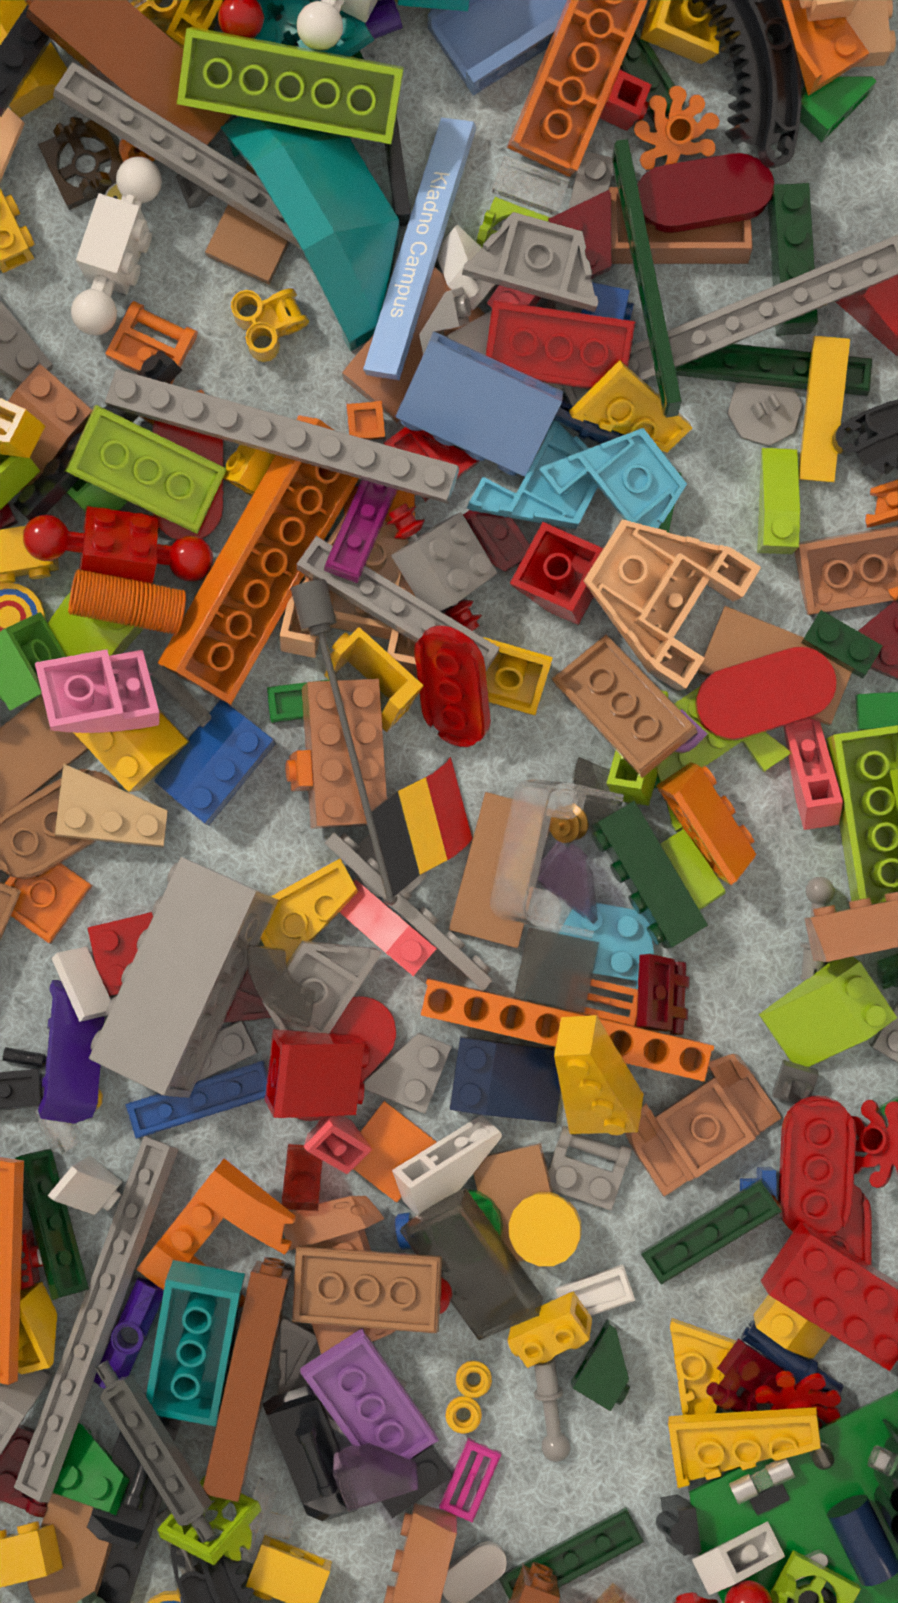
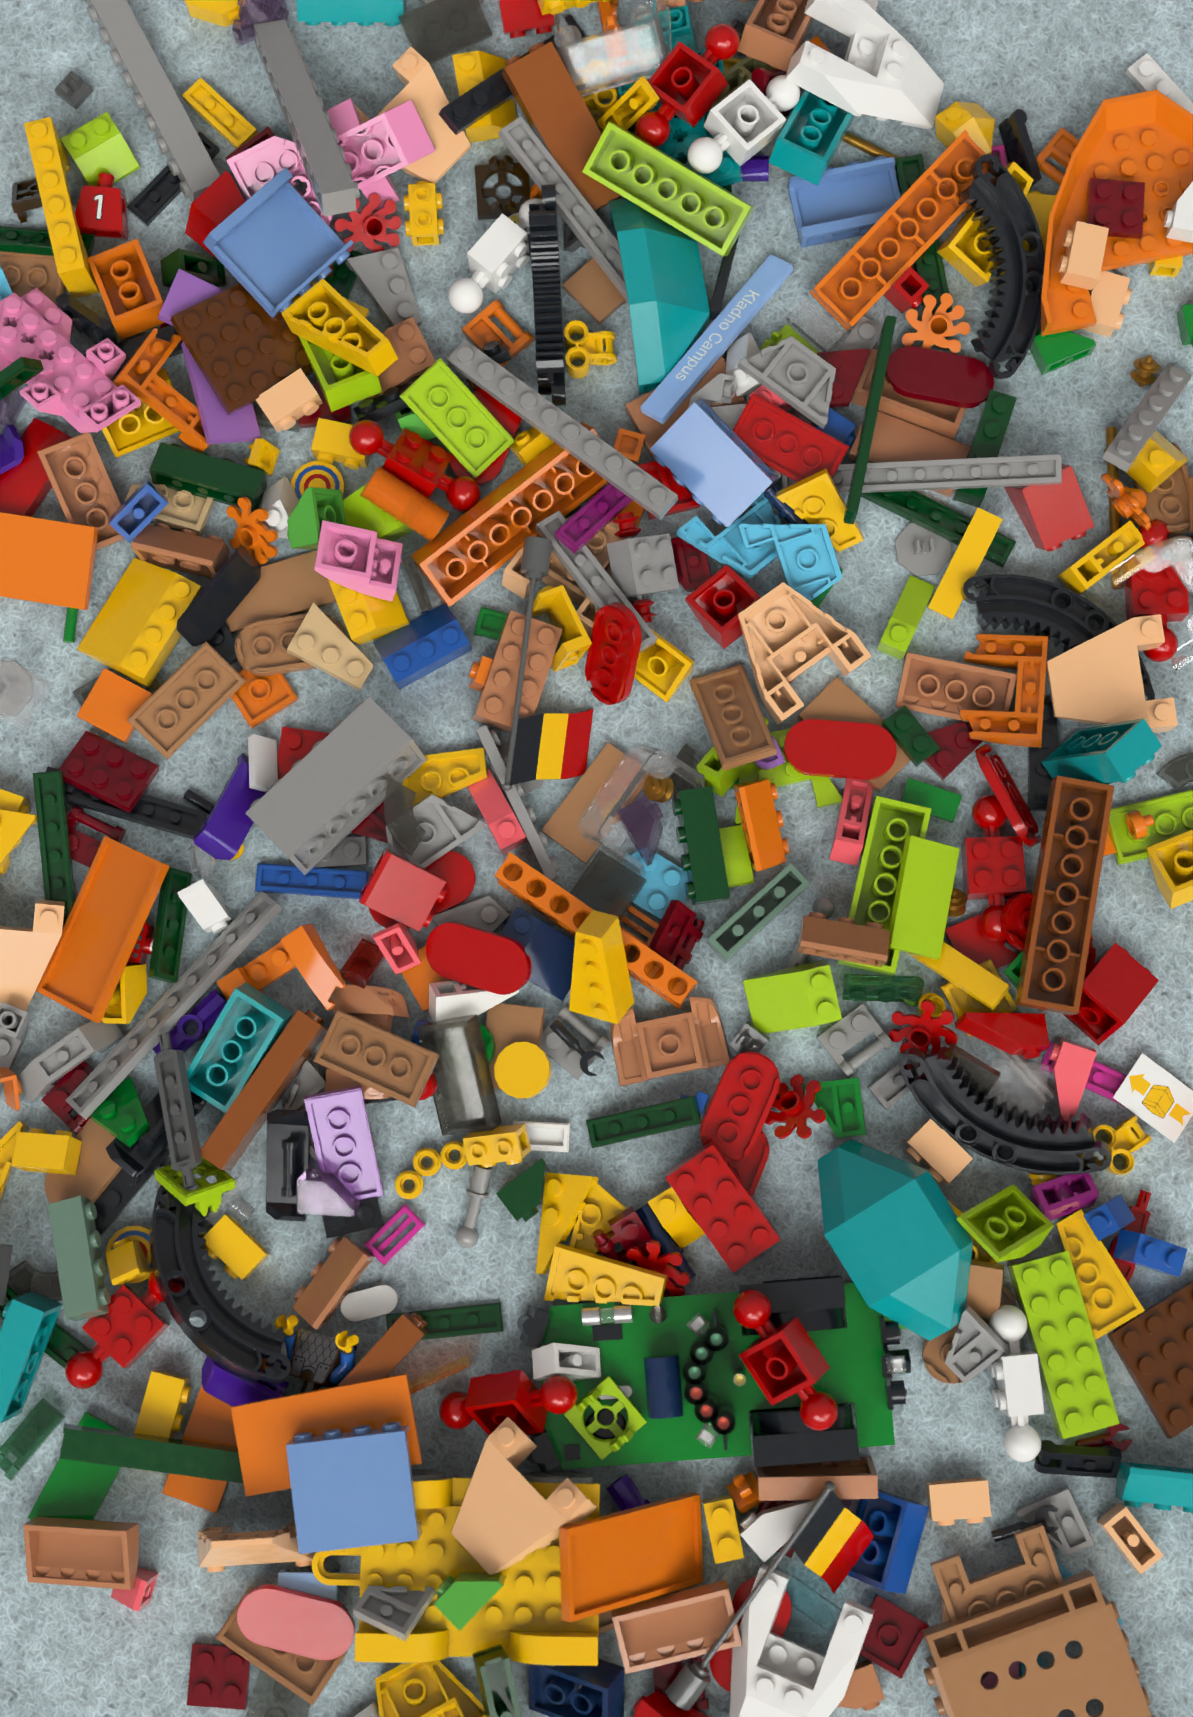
camera: 30 degrees right, 5 degrees down
(195, 275) = (547, 296): none -> black gear
(439, 1118) = (478, 958): none -> red tile
(494, 1366) = (445, 1155): none -> yellow plate
(592, 1173) = (558, 1028): none -> black piece
(653, 1365) = (561, 1204): none -> yellow wing
(698, 289) = (902, 441): none -> nougat slope
(747, 928) = (758, 913): none -> sand green brick

